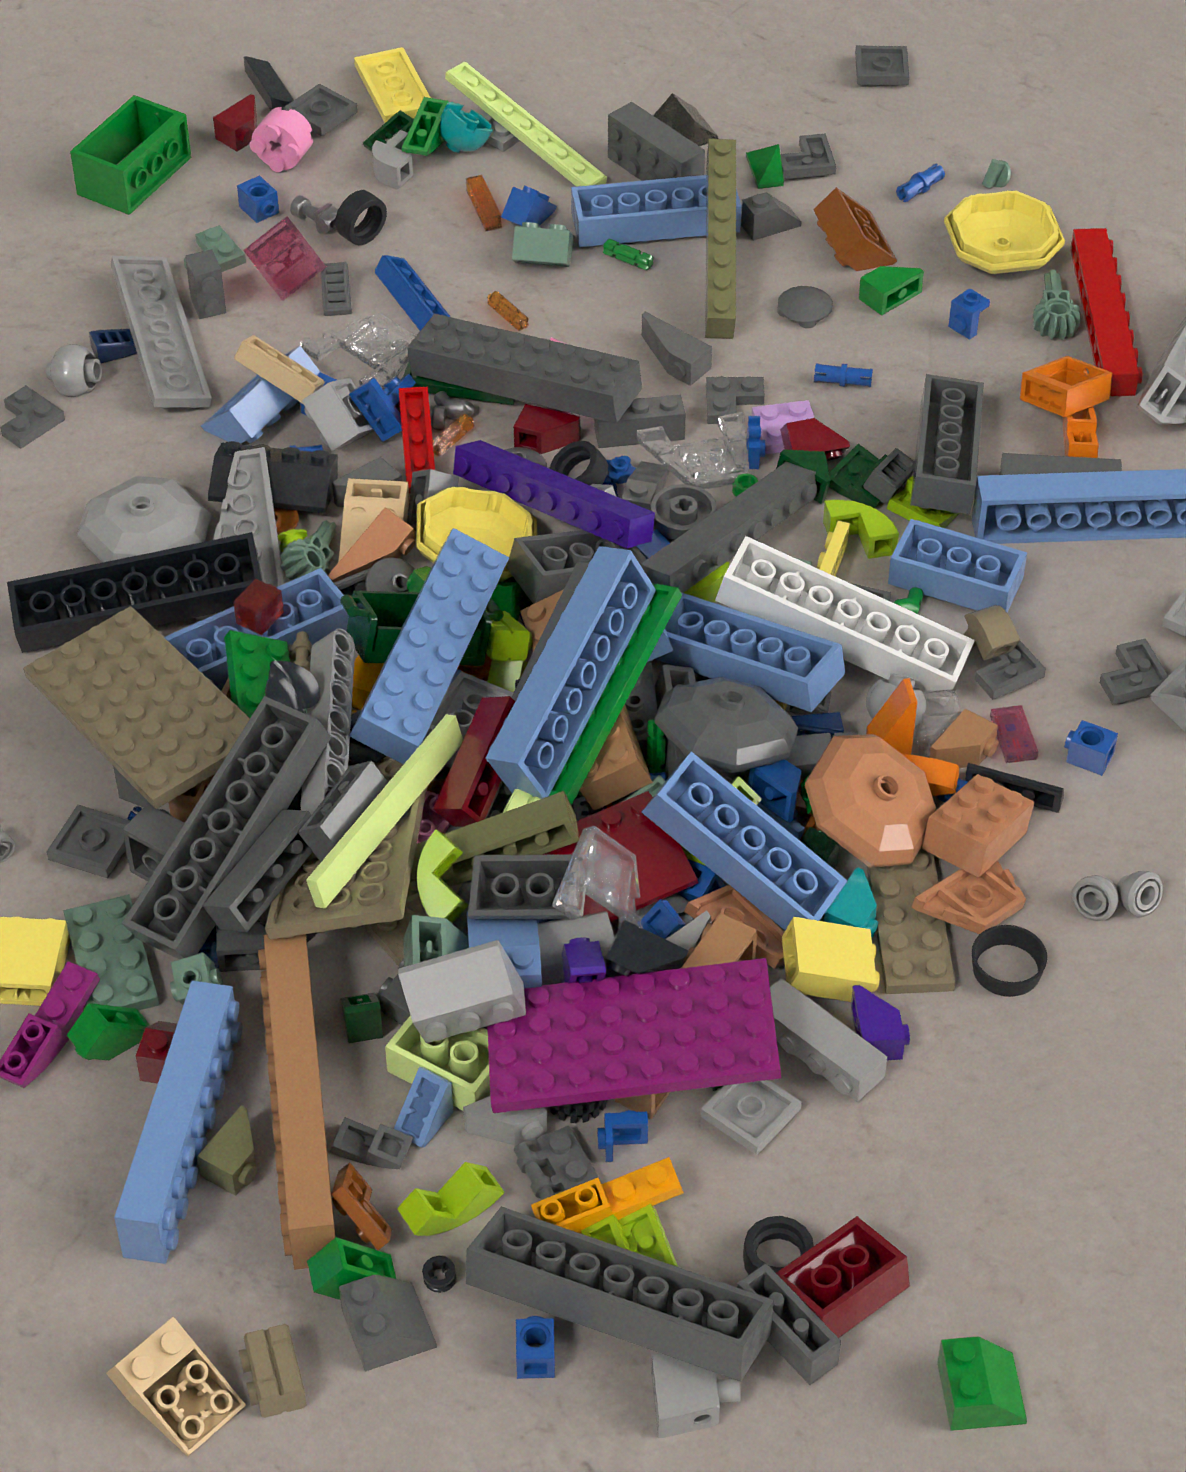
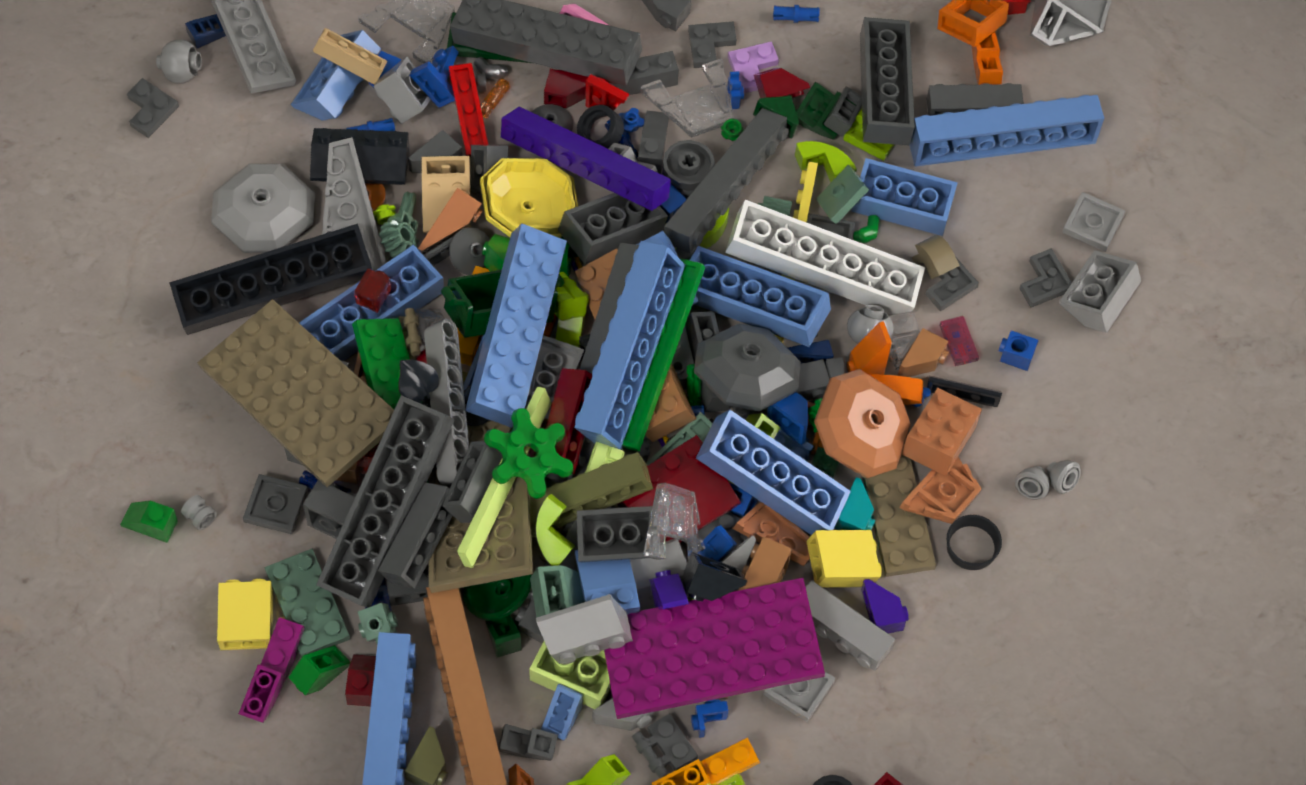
camera: 10 degrees left, 15 degrees up
(360, 955) = (497, 598): none -> dark green dish
(421, 800) = (517, 463): none -> green plate
(585, 426) = (601, 92): none -> red wing
(876, 556) = (842, 194): none -> sand green plate

